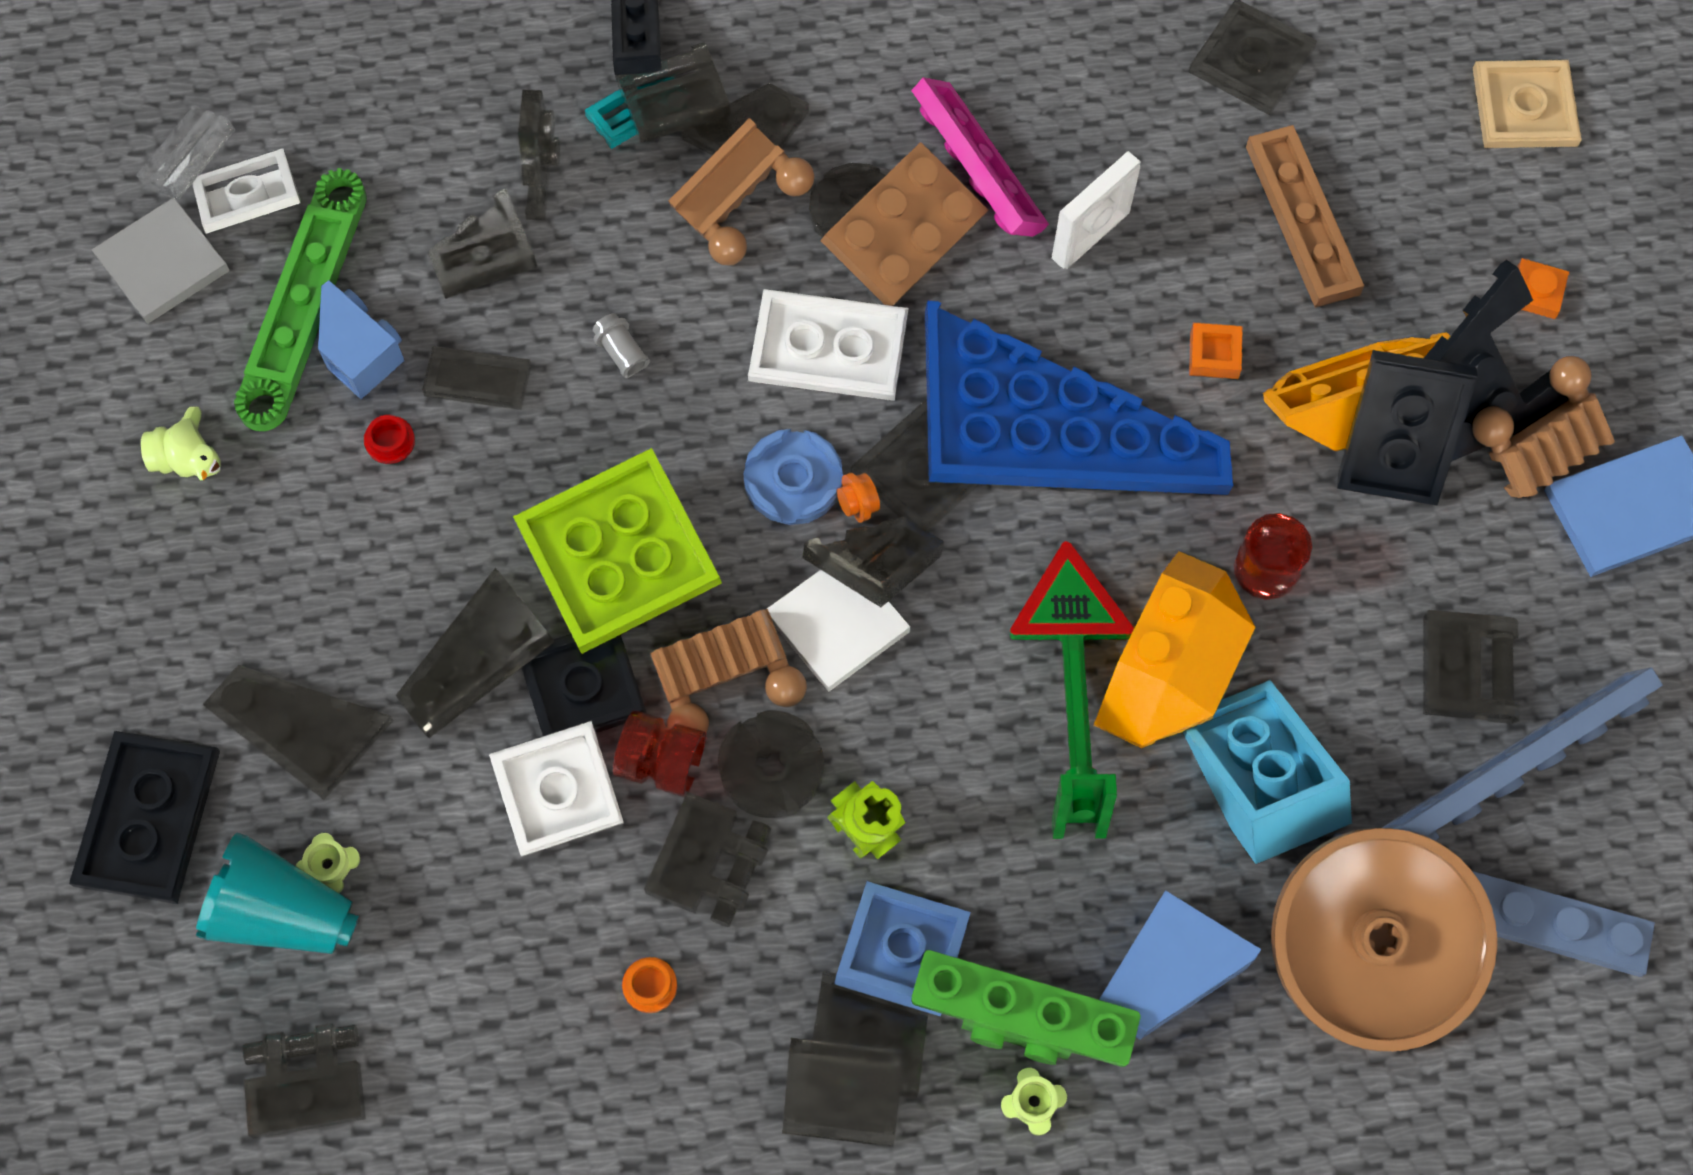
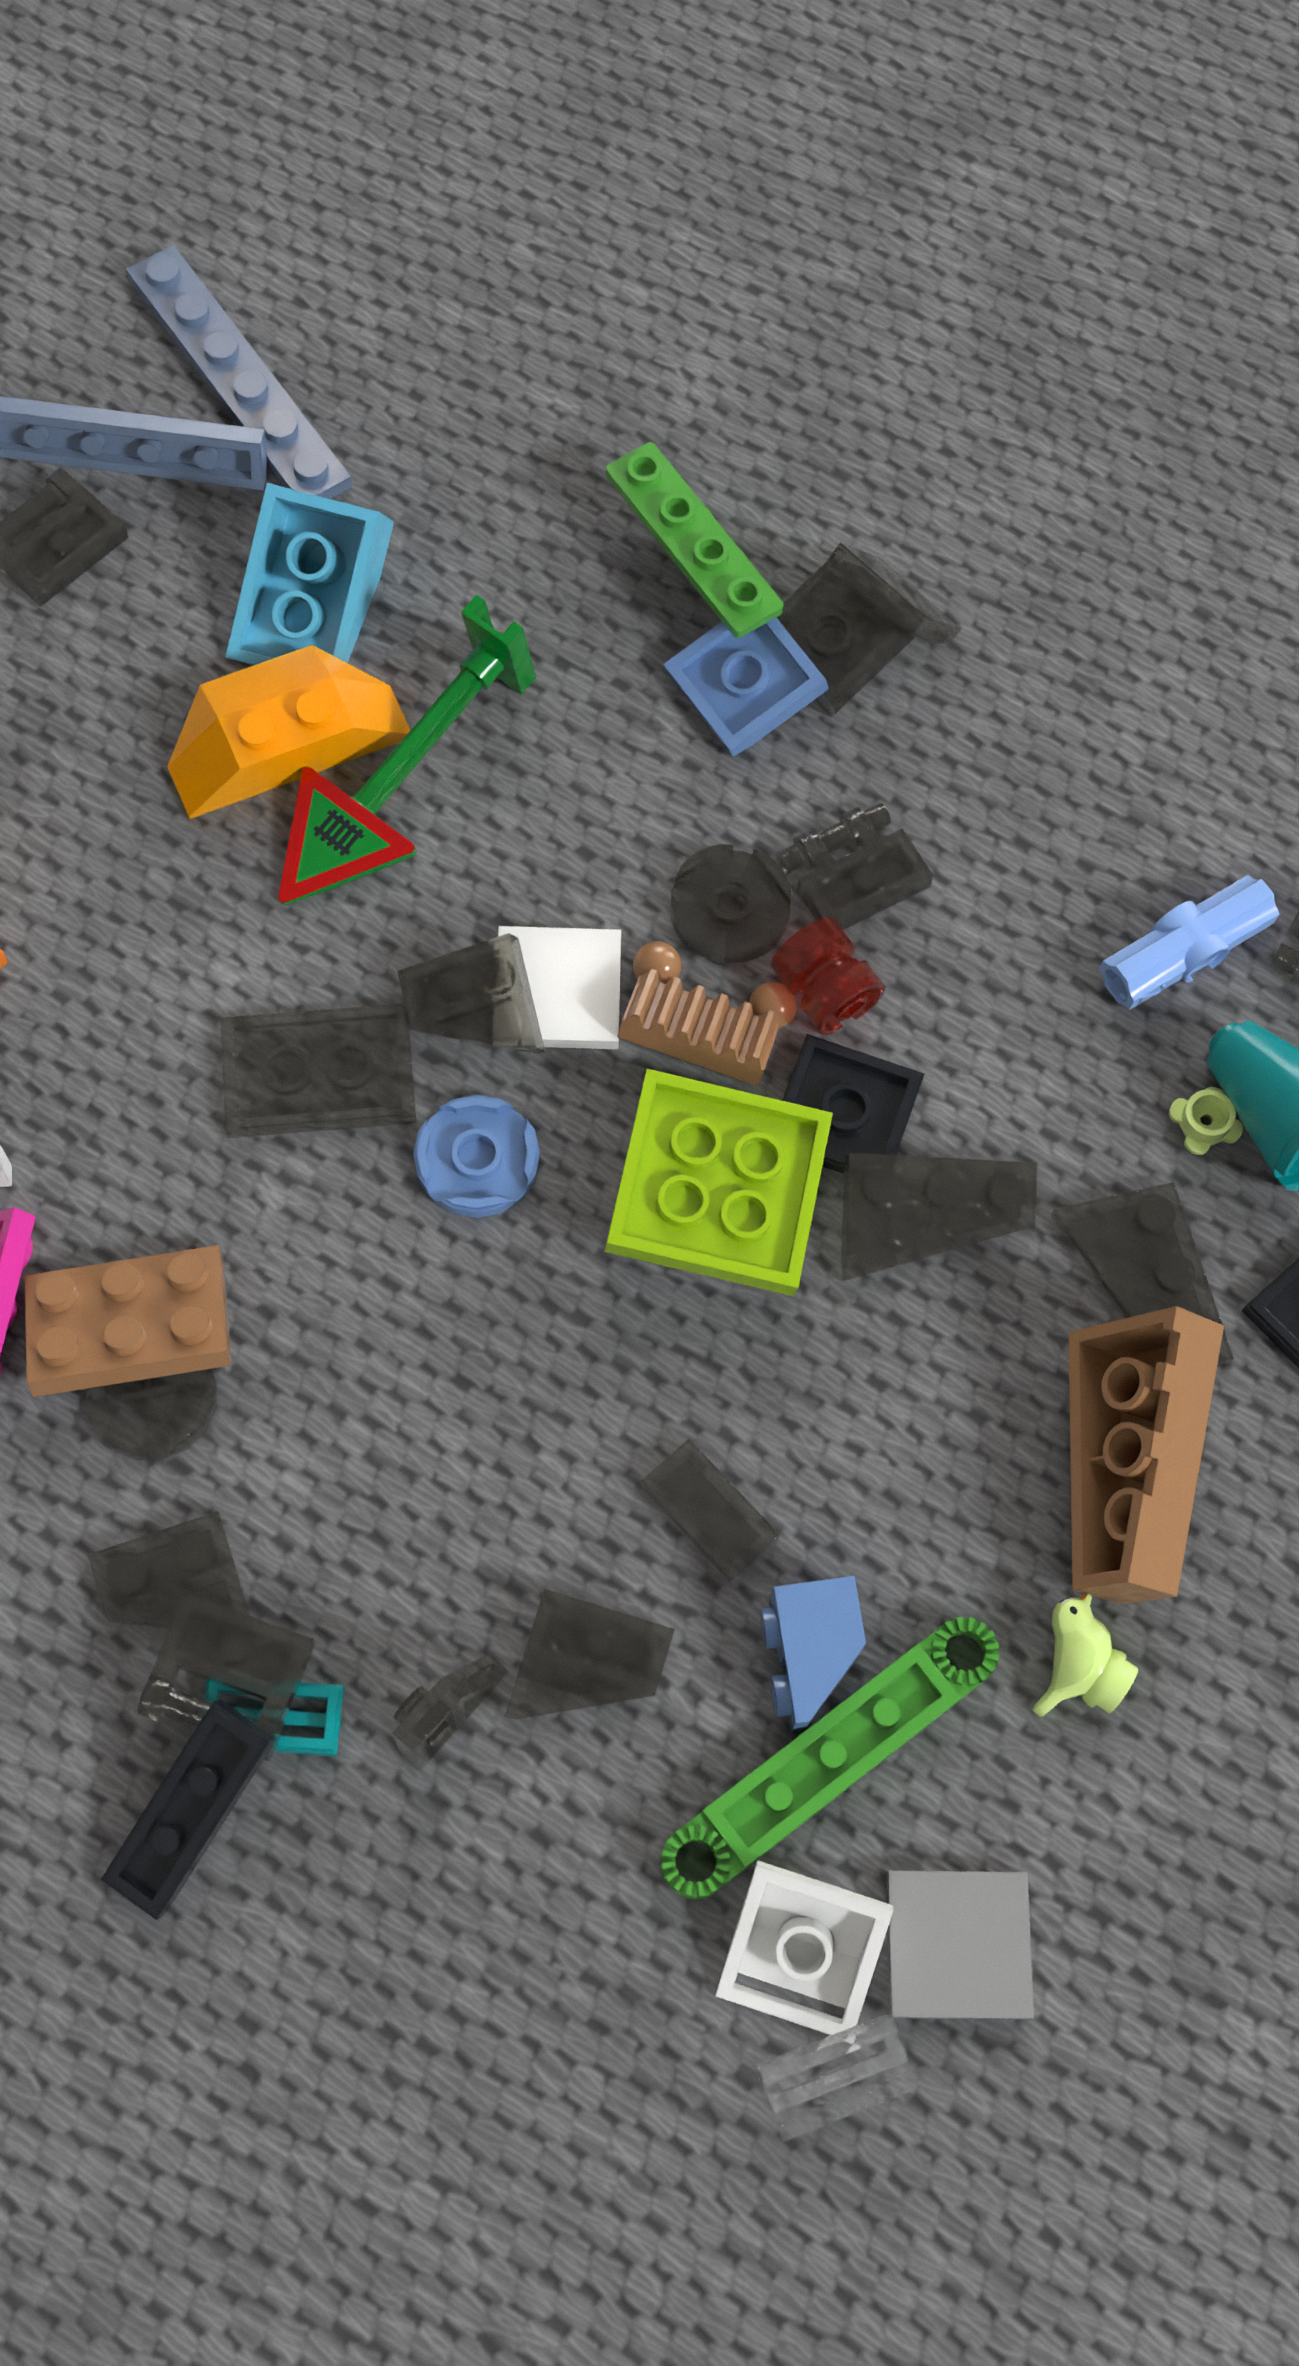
camera: 145 degrees left, 0 degrees up
(226, 580) = (1137, 1449): none -> medium nougat wedge
(389, 439) = (852, 1509): red plate -> none
(423, 988) = (1188, 941): none -> light blue piece
(556, 788) = (944, 1026): white tile -> none
(614, 336) = (532, 1425): light grey pin -> none
(649, 985) = (985, 809): orange plate -> none
(731, 177) = (261, 1510): medium nougat gear -> none
(828, 344) = (320, 1265): white tile -> none
(858, 496) = (436, 1076): orange plate -> none
(868, 818) = (689, 778): lime connector -> none
(1025, 421) = (201, 1008): blue wing -> none
(1049, 1097) = (742, 491): yellowish green plate -> none
(1176, 963) = (540, 503): medium blue slope -> none
(1272, 556) = (121, 726): clear red wheel -> none
(1384, 939) = (352, 392): medium nougat dish -> none

